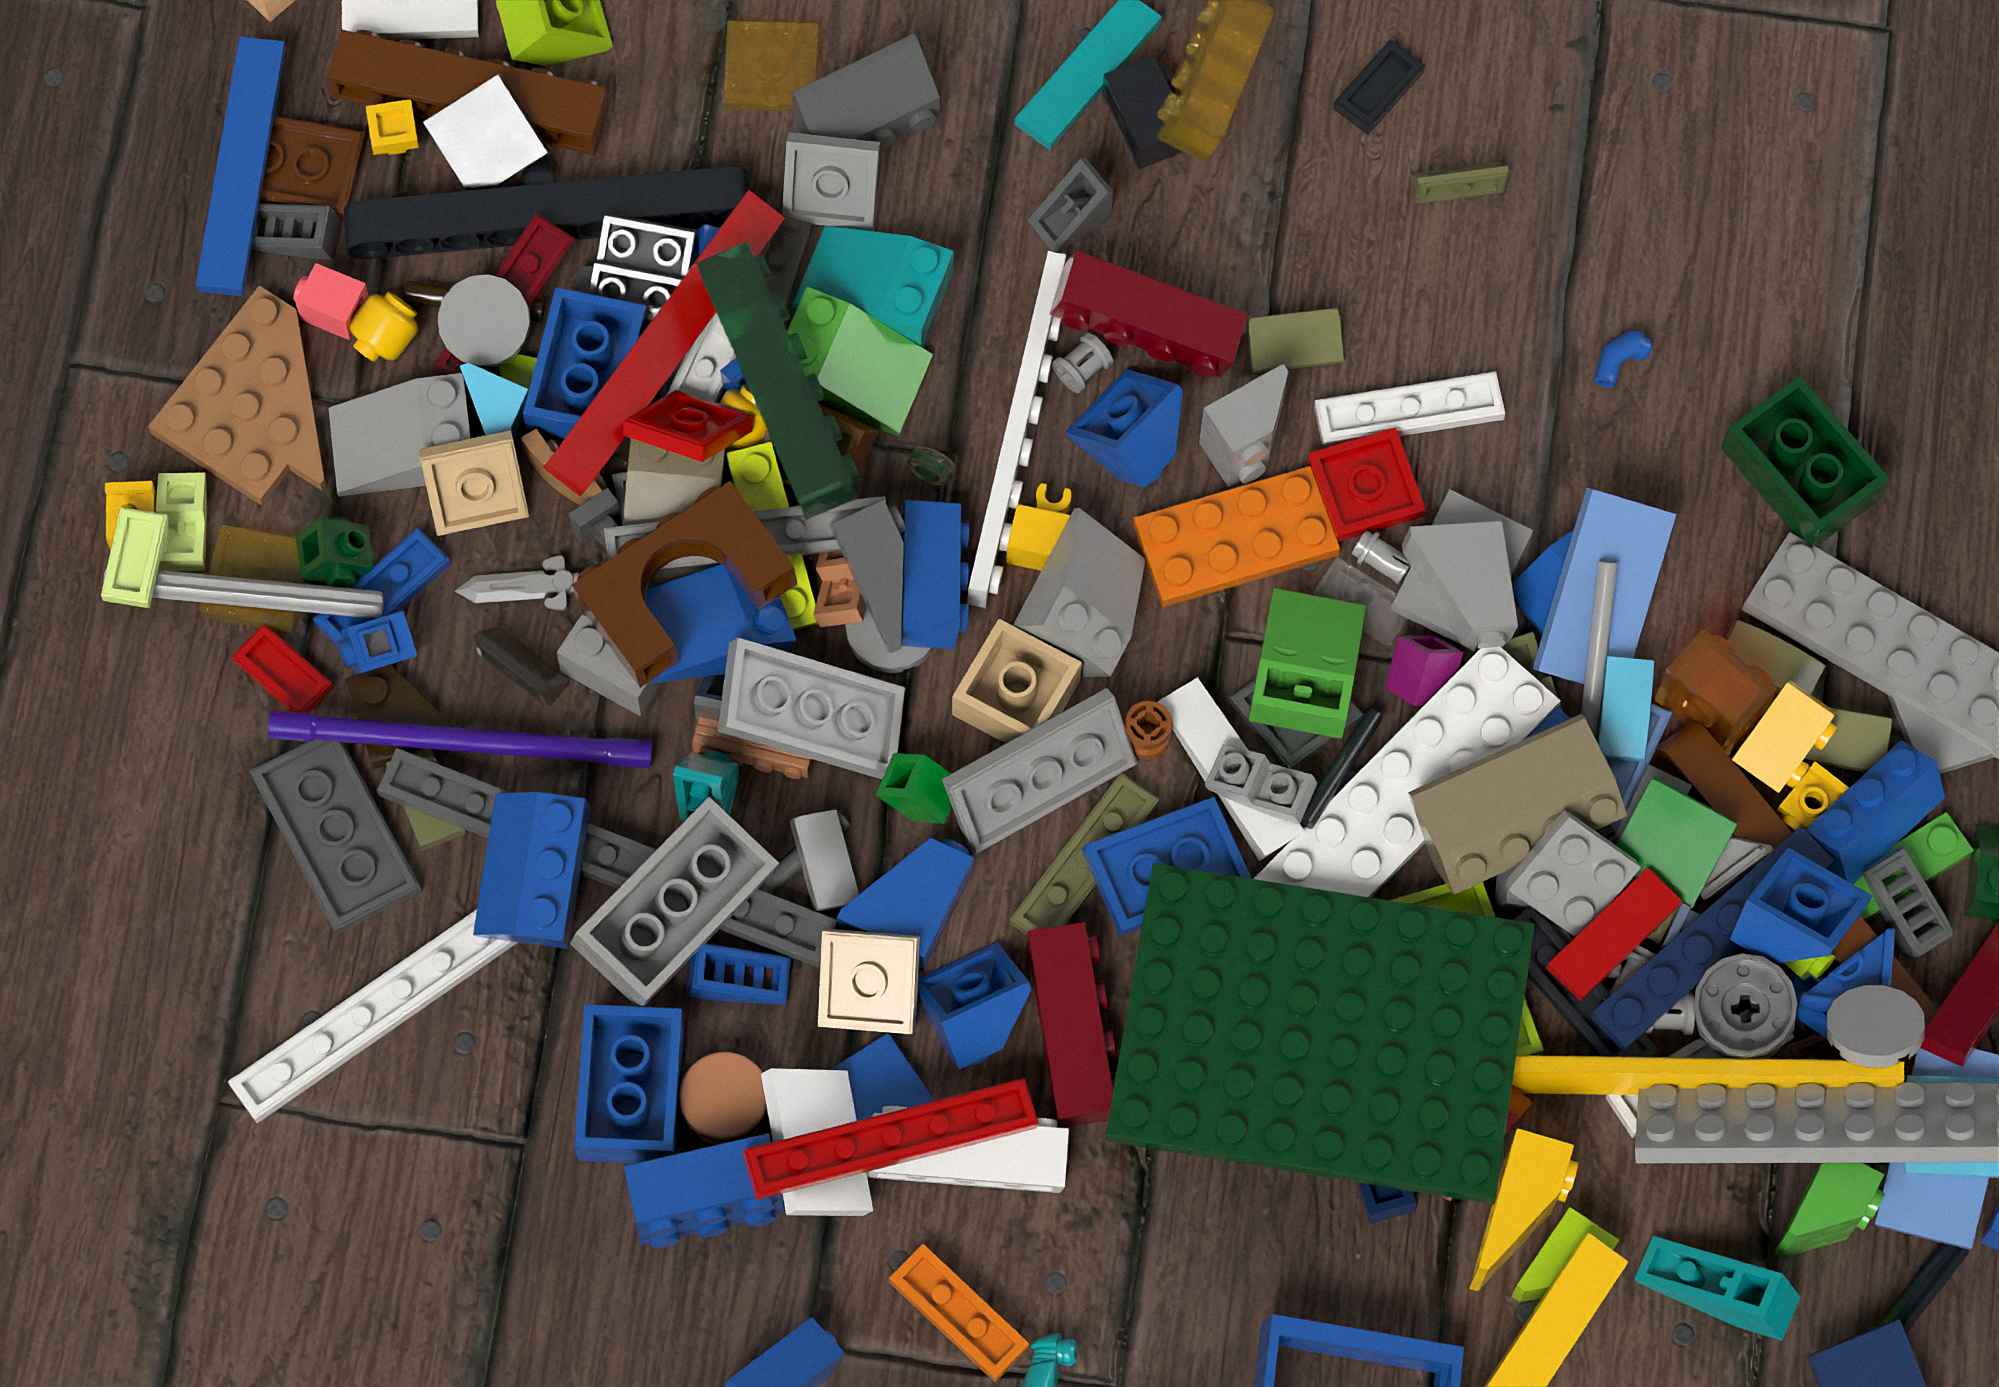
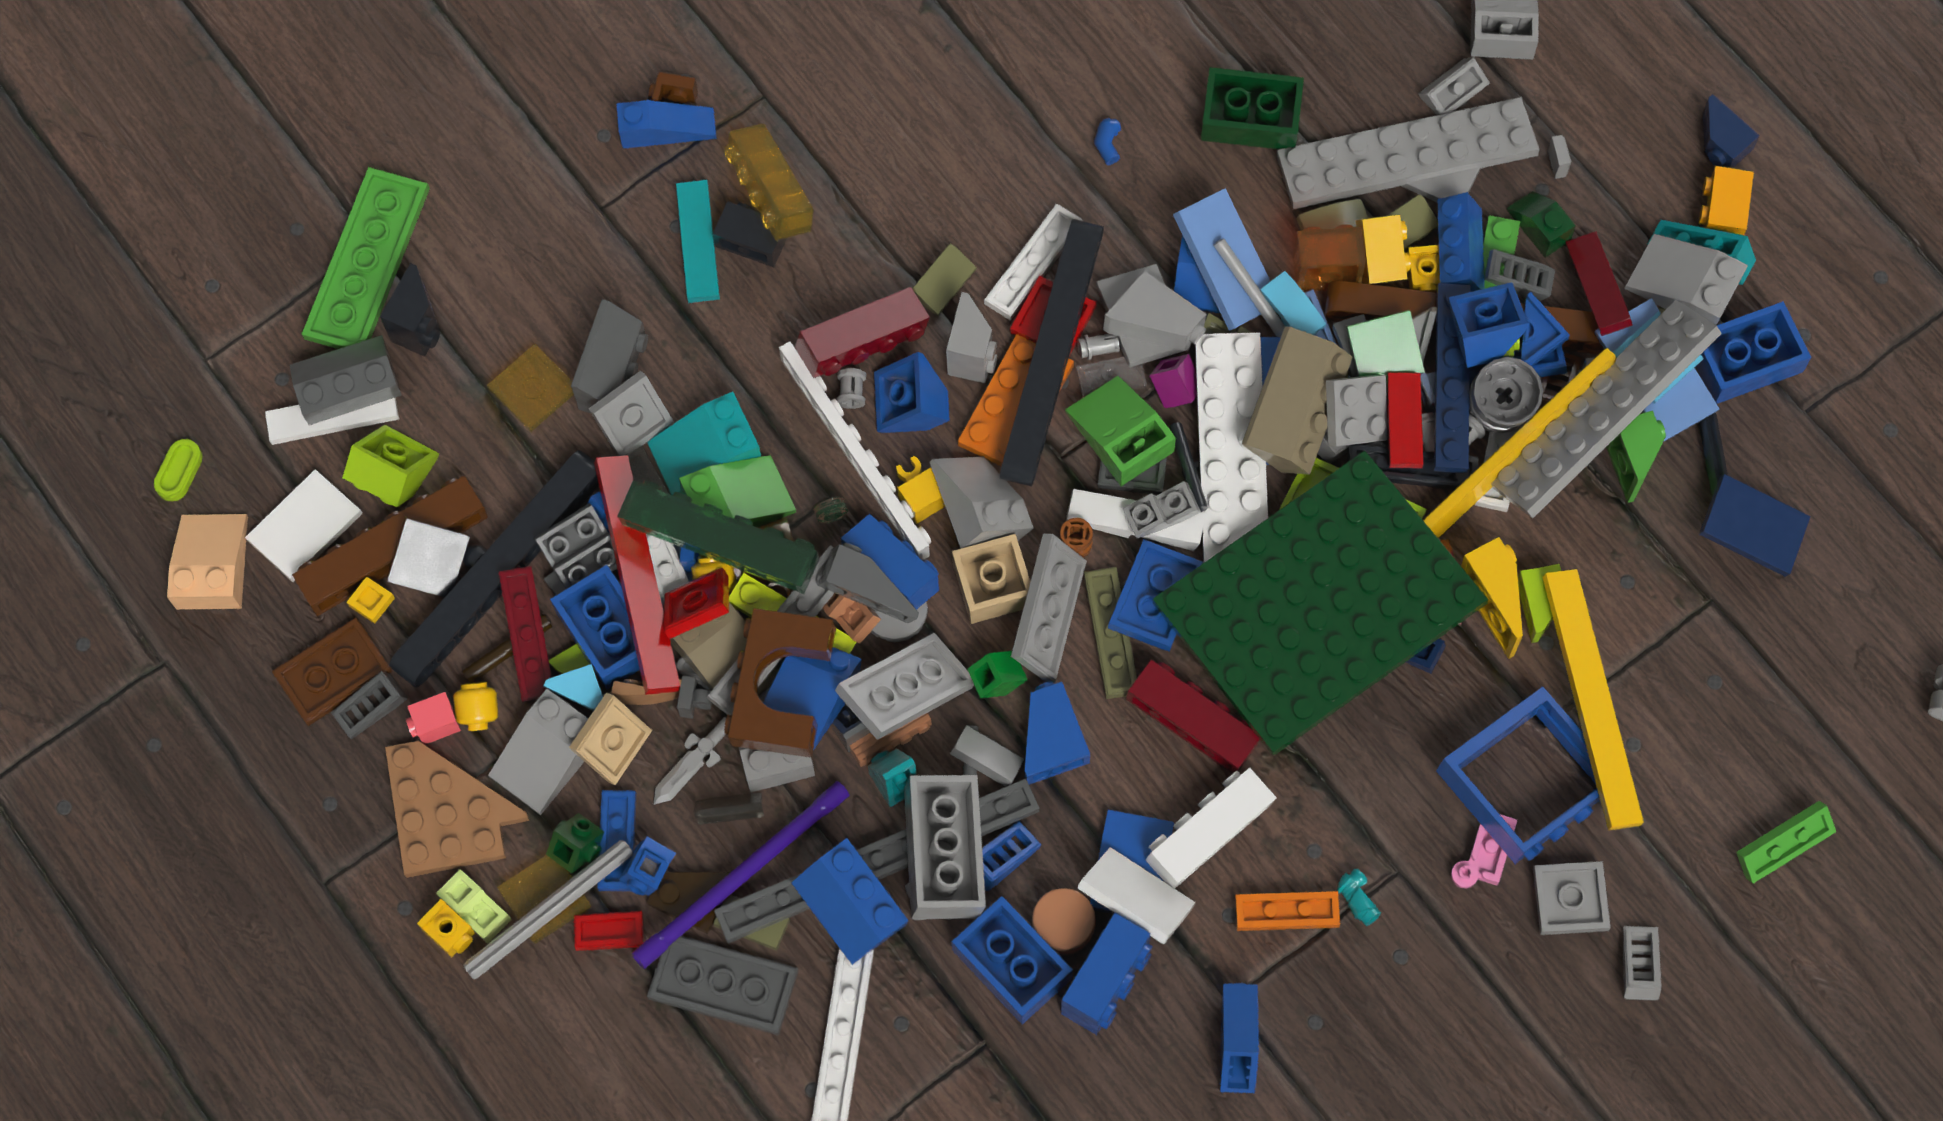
camera: 40 degrees left, 0 degrees up
(135, 557) = (475, 945): yellowish green tile -> none
(241, 166) = (311, 695): blue tile -> none
(484, 321) = (528, 652): light grey tile -> none
(868, 981) = (1074, 792): tile -> none
(889, 1139) = (1174, 857): red tile -> none
(974, 1003) = (1135, 753): blue slope -> none
(1073, 208) = (765, 315): dark grey slope -> none
(1320, 516) = (1051, 353): none -> black beam
(1379, 87) = (851, 117): black tile -> none
(1459, 182) = (939, 126): olive slope -> none
(1720, 1287) = (1623, 541): teal slope -> none
(1875, 1025) = (1575, 344): light grey tile -> none

